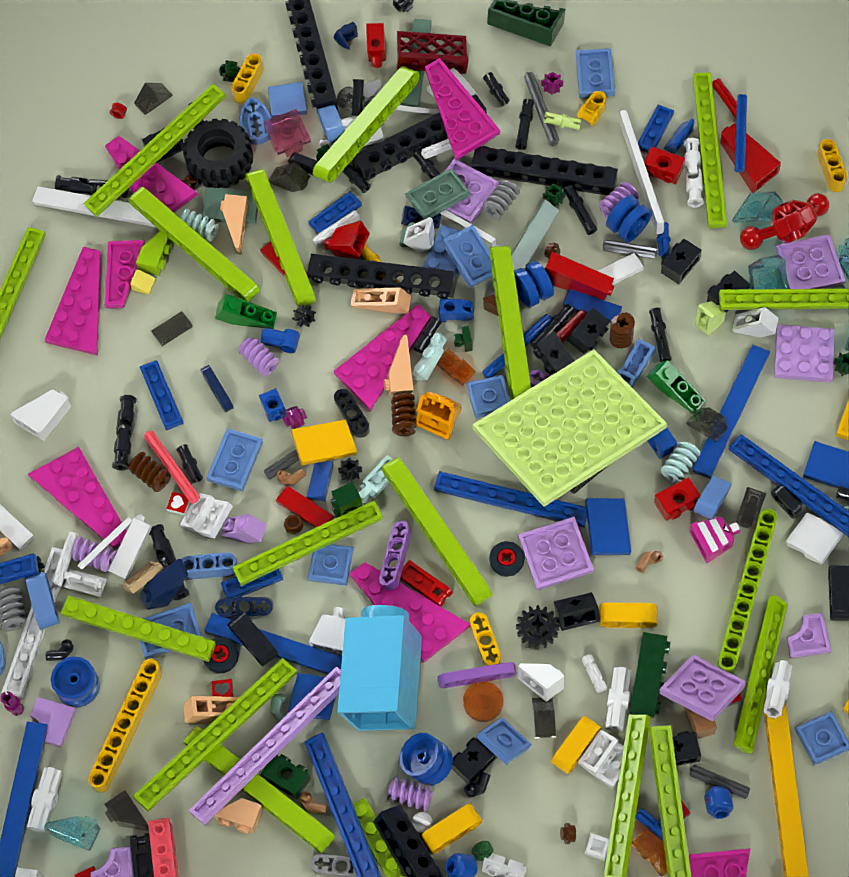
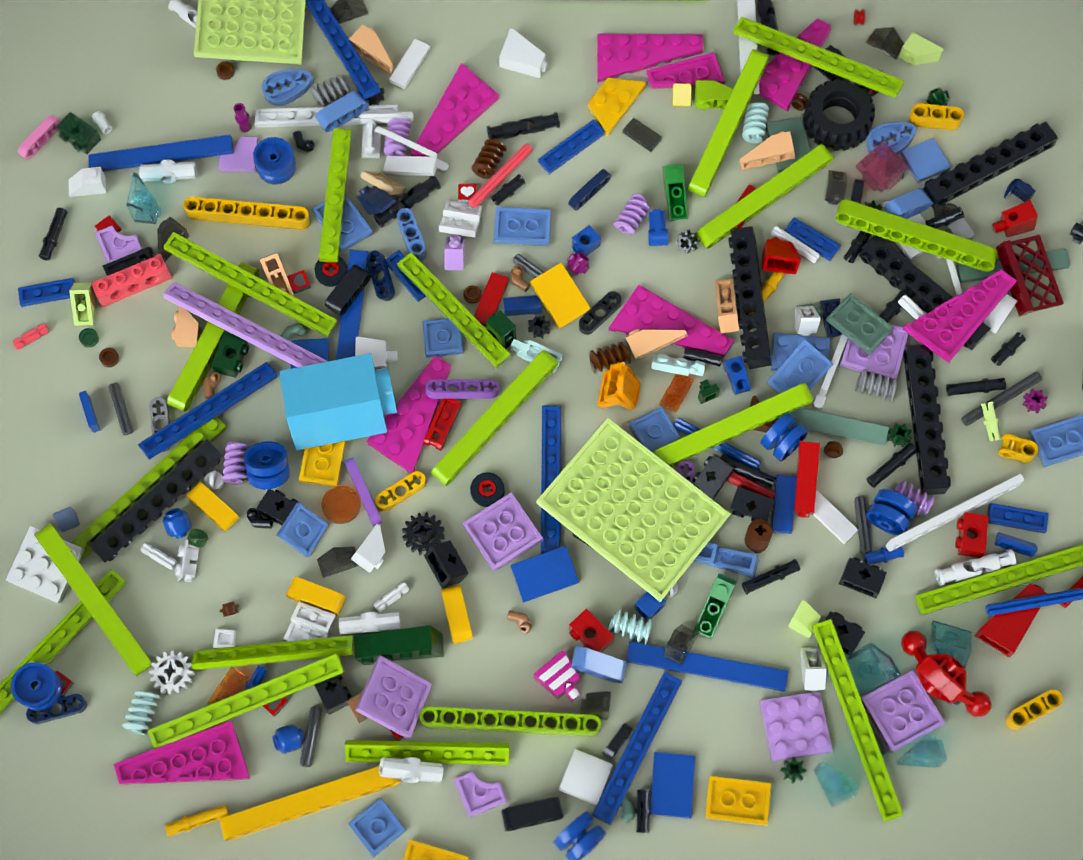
camera: 70 degrees right, 5 degrees up
(125, 344) = (613, 101): none -> yellow wing
(173, 72) = (920, 50): none -> yellowish green slope
(437, 709) = (322, 464): none -> yellow plate

